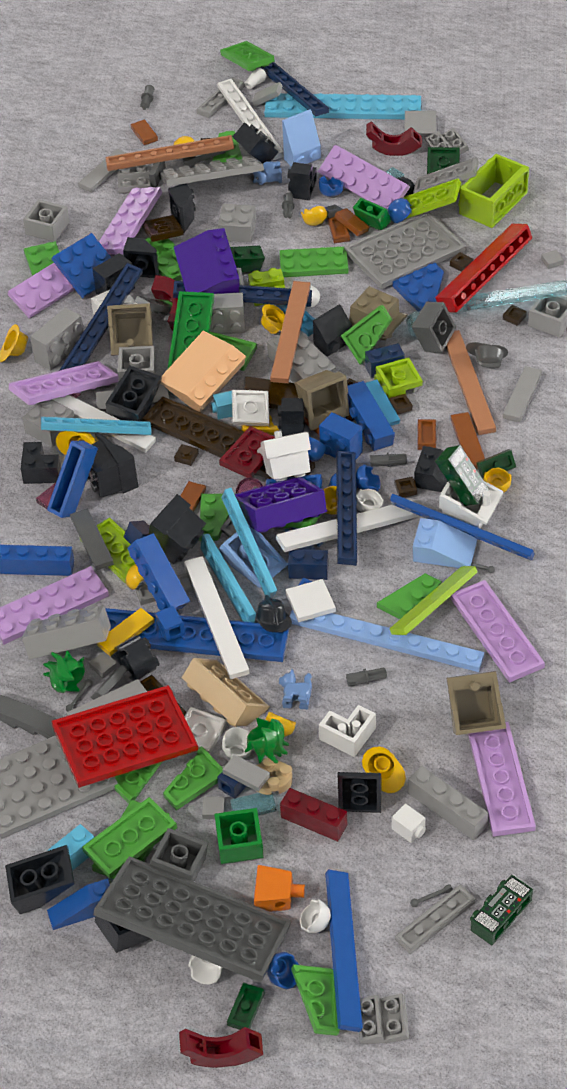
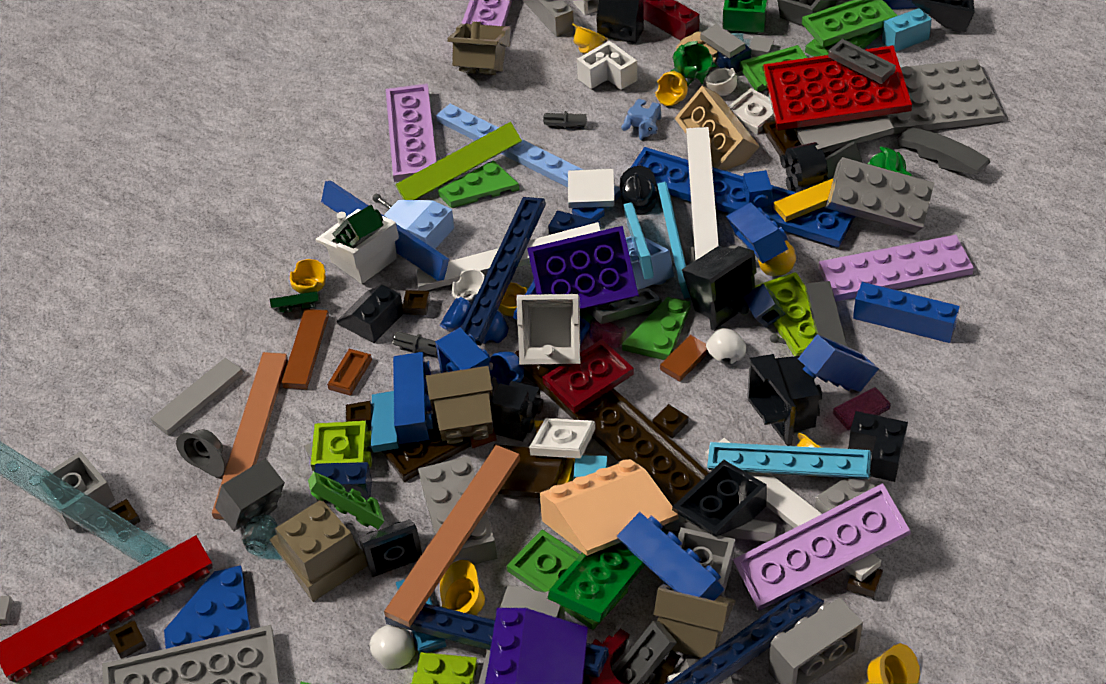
camera: 160 degrees left, 0 degrees up
(103, 748) = (861, 61): none -> dark grey plate
(150, 335) = (668, 559): none -> blue brick
(157, 503) = (726, 344): none -> white hair

